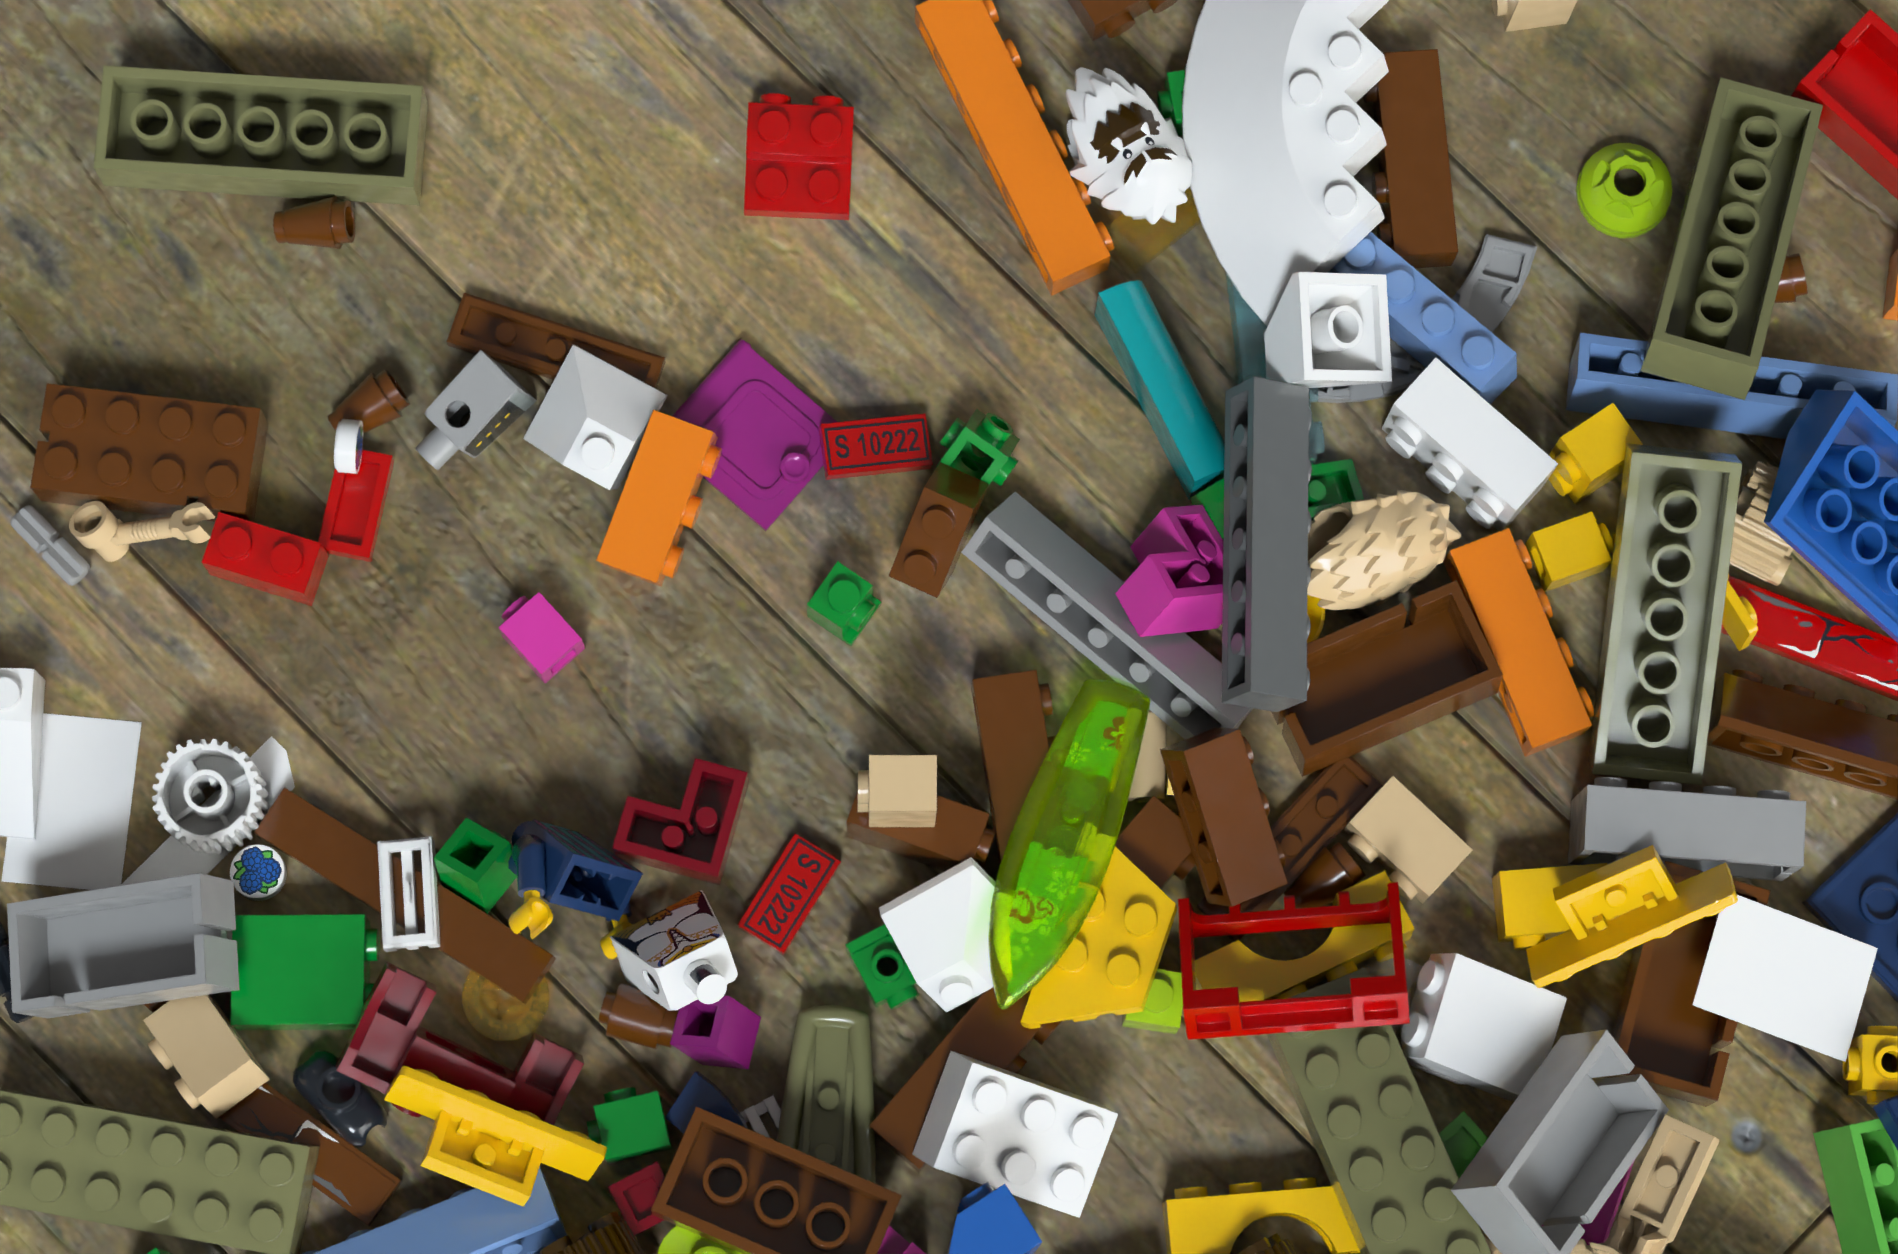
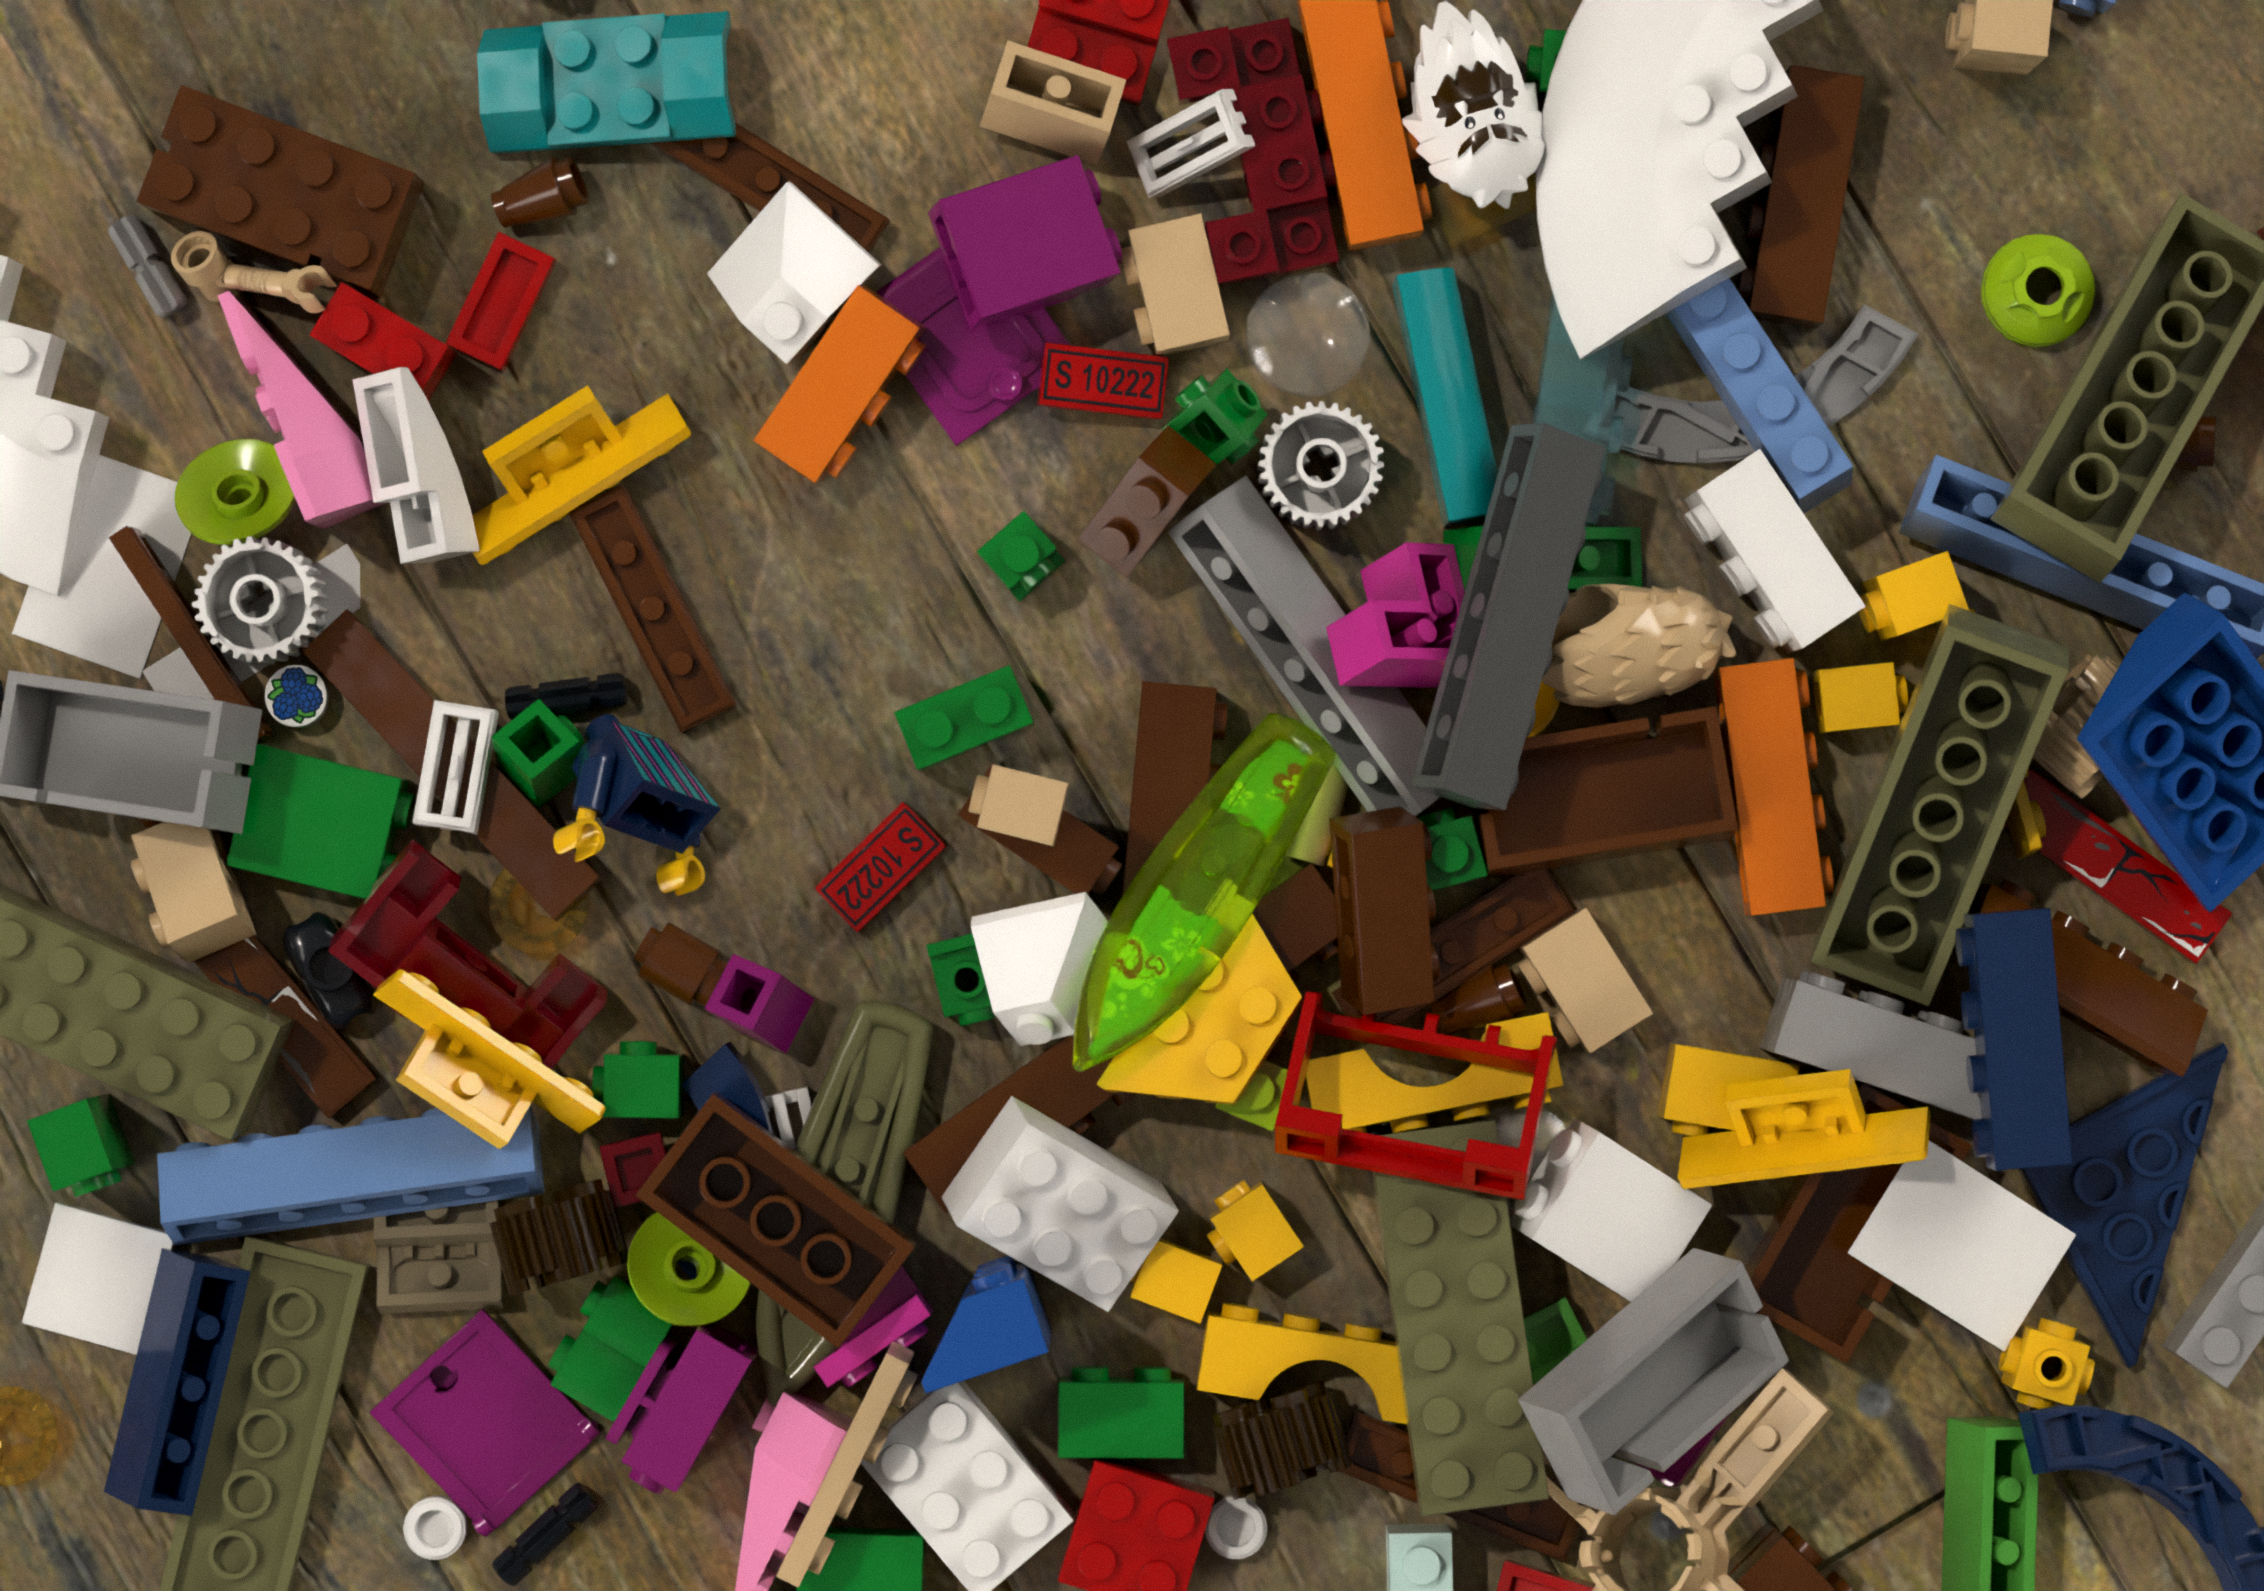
camera: 20 degrees right, 10 degrees up
(137, 822) = (181, 621): none -> reddish brown tile
(168, 710) = (228, 475): none -> lime dish
(232, 655) = (320, 446): none -> bright pink wedge
(315, 652) = (413, 468): none -> white slope
(348, 446) = (505, 239): white tile -> none
(402, 302) = (605, 82): none -> teal piece
(439, 619) = (566, 461): none -> yellow bracket
(493, 403) = (679, 220): light grey torso -> none
(493, 813) = (569, 695): none -> black axle
(540, 636) = (671, 507): dark pink brick -> none
(544, 726) = (652, 608): none -> reddish brown tile
(677, 954) = (737, 911): white torso -> none
(690, 839) = (785, 783): dark red brick -> none
(777, 228) = (1052, 102): none -> tan brick
(784, 343) = (1026, 241): none -> magenta brick
(830, 749) = (964, 718): none -> green brick
(917, 353) = (1176, 286): none -> tan brick
(929, 208) = (1229, 125): none -> white tile
(971, 221) = (1284, 171): none -> dark red bracket
(1036, 368) = (1308, 335): none -> clear dish
(1076, 440) = (1333, 433): none -> white brick
(1129, 1179) = (1176, 1280): none -> yellow brick
(1182, 1120) = (1251, 1229): none -> yellow brick
(1274, 758) = (1454, 850): none -> green brick
(1330, 331) = (1648, 388): white slope -> none
(1784, 784) = (2016, 1039): none -> dark blue brick

